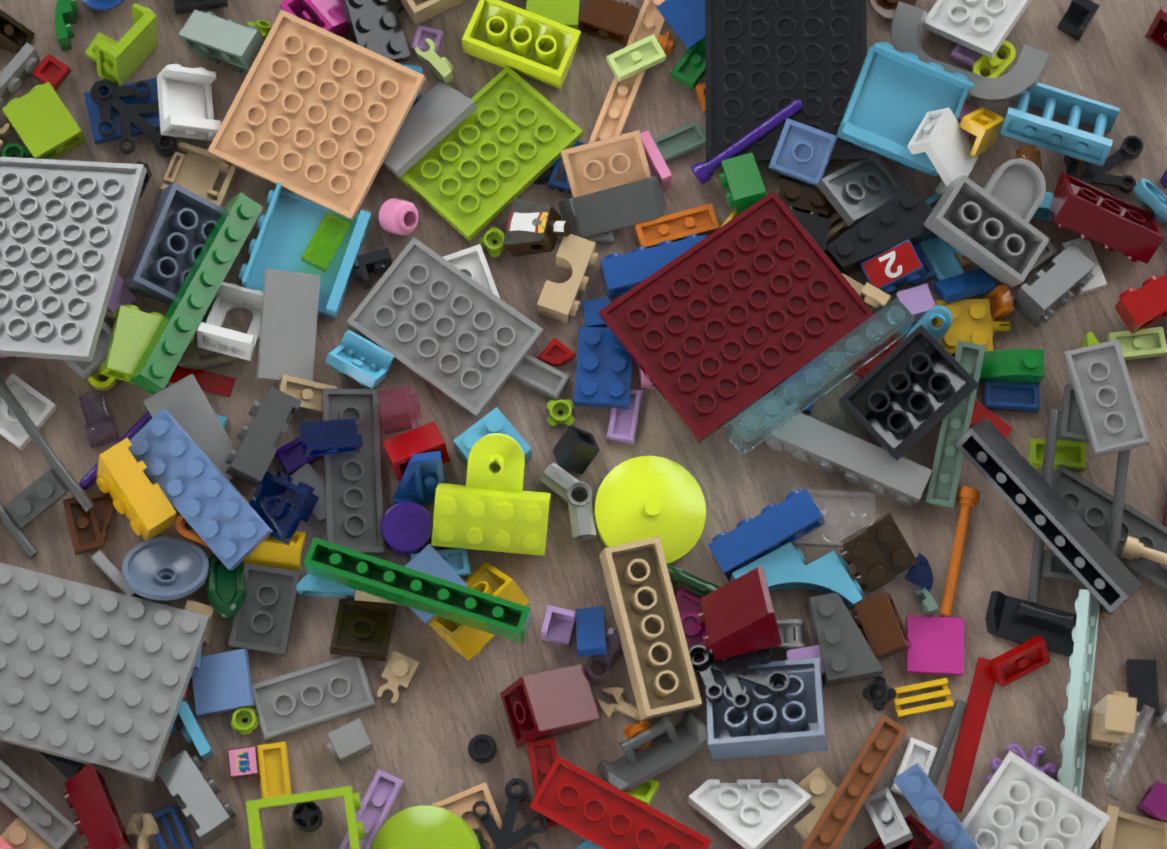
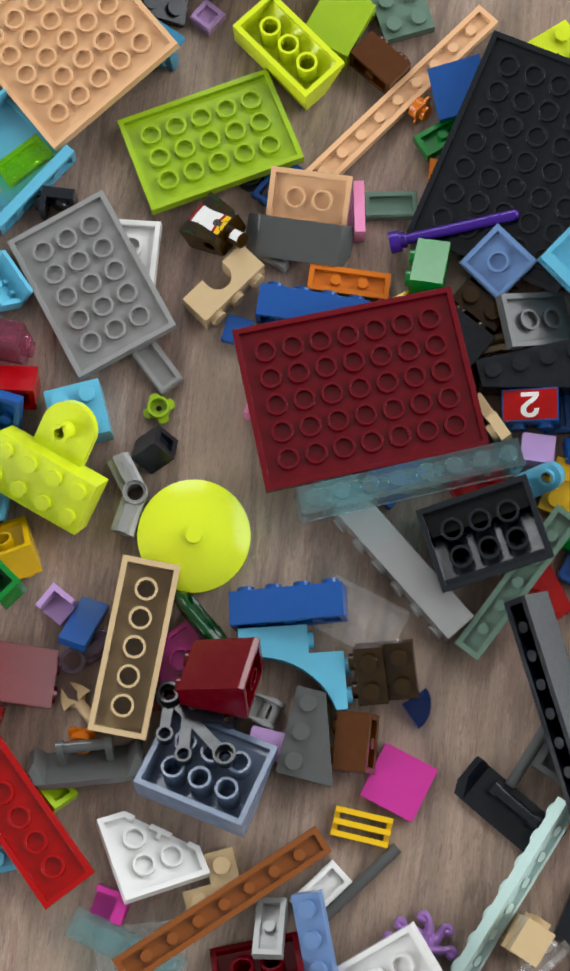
camera: 30 degrees right, 5 degrees up
(398, 216) = (99, 165): bright pink head -> none
(426, 126) = (164, 93): light grey tile -> none
(439, 66) = (205, 43): yellowish green plate -> none
(491, 235) = (170, 221): lime plate -> none
(556, 354) = (182, 352): red tile -> none
(602, 370) = (213, 387): blue plate -> none
(624, 421) = (216, 436): lavender tile -> none
(636, 58) = (385, 109): yellowish green plate -> none
(871, 693) = (315, 800): black plate -> none
(925, 602) = (408, 737): sand green tile -> none
(968, 498) = (496, 659): orange piece -> none
(969, 735) = (391, 882): red sticker -> none
(1020, 661) = (471, 835): red plate -> none

